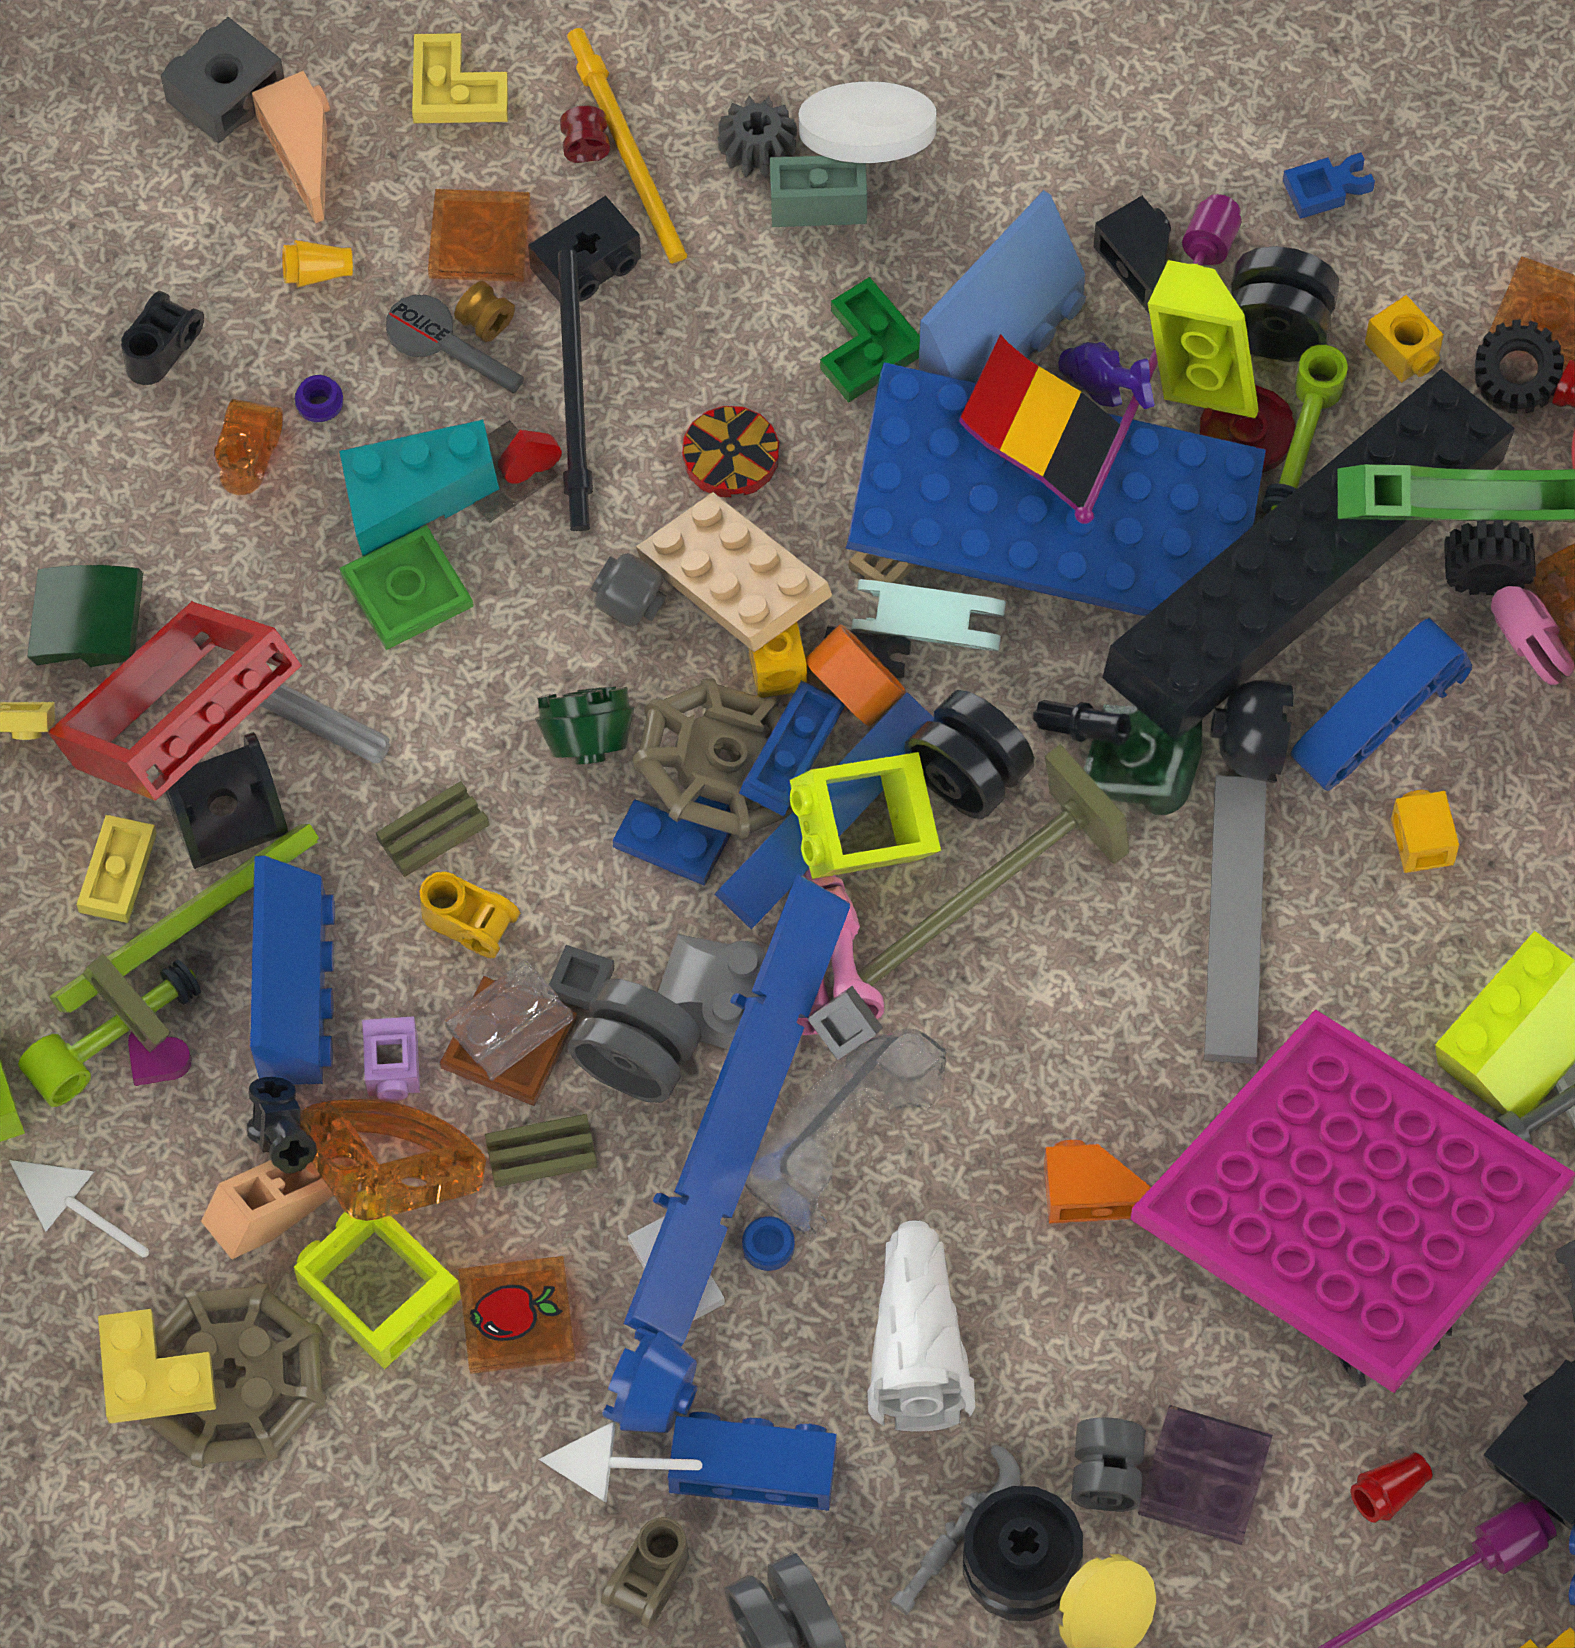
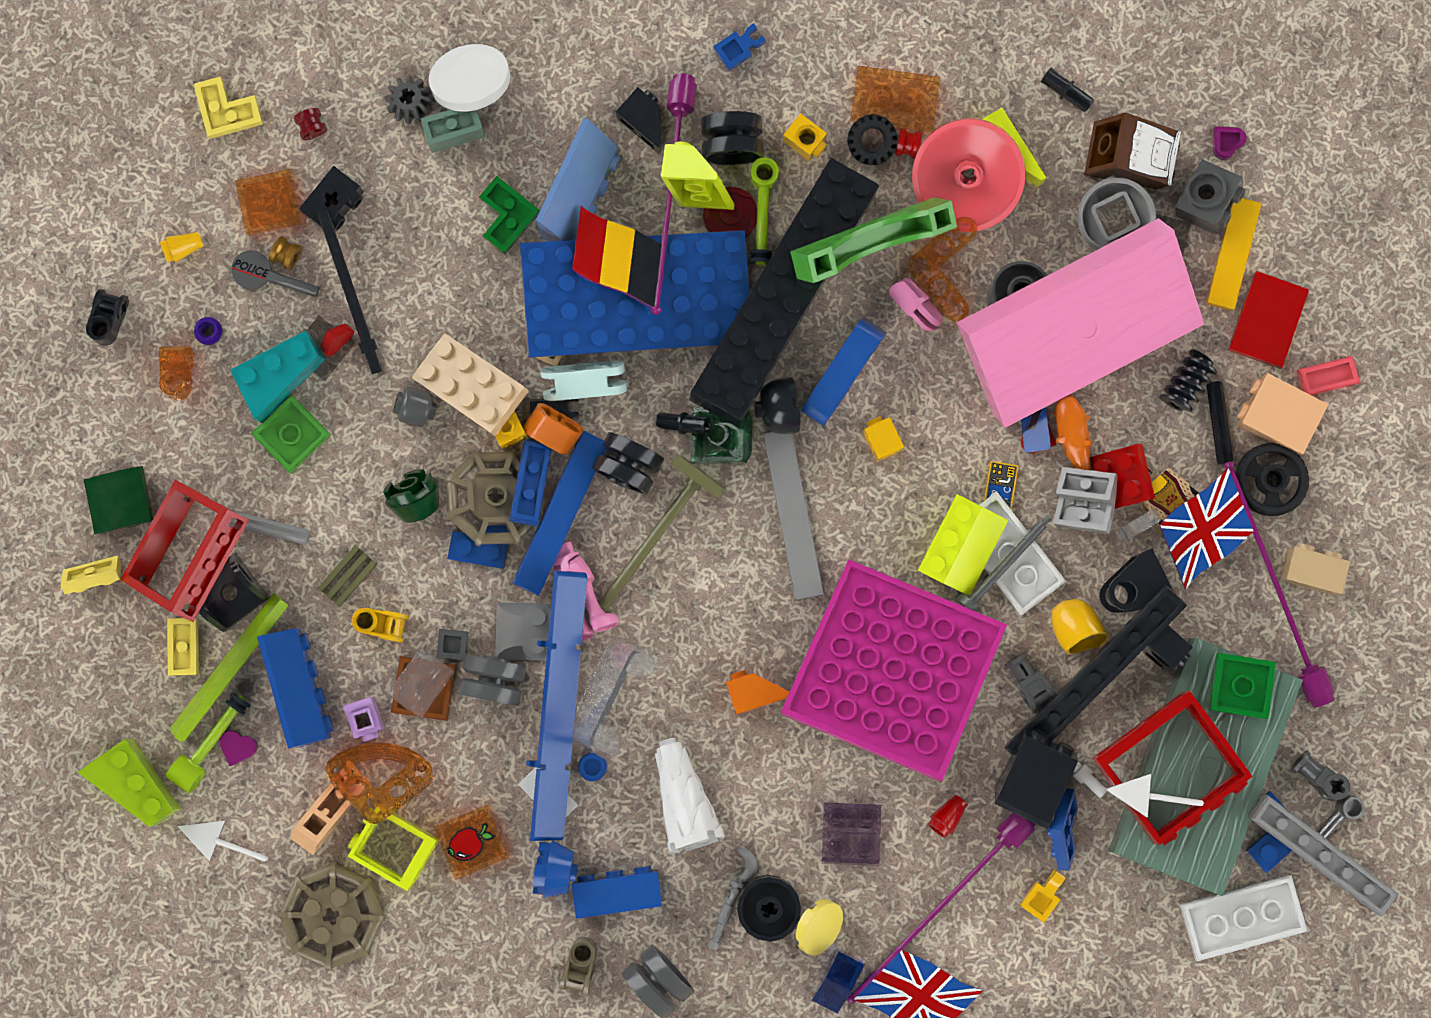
camera: 15 degrees left, 20 degrees up
(126, 1002) = (213, 732): olive tile -> none
(140, 1383) = (287, 939): light yellow plate -> none
(222, 55) = (84, 129): dark grey brick -> none
(277, 1124) = (315, 777): black connector -> none
(297, 129) = (145, 162): light nougat slope -> none
(535, 1132) = (436, 757): olive tile -> none
(590, 1460) = (532, 914): white piece -> none
(595, 74) = (304, 80): yellow bar -> none
(730, 451) = (447, 303): tile -> none
(845, 1023) = (602, 642): plate -> none
(906, 803) = (603, 503): neon yellow window -> none
(1101, 374) = (644, 209): dark purple animal -> none
(1108, 1457) = (796, 836): dark grey wheel -> none
(1489, 557) = (882, 267): black tyre -> none

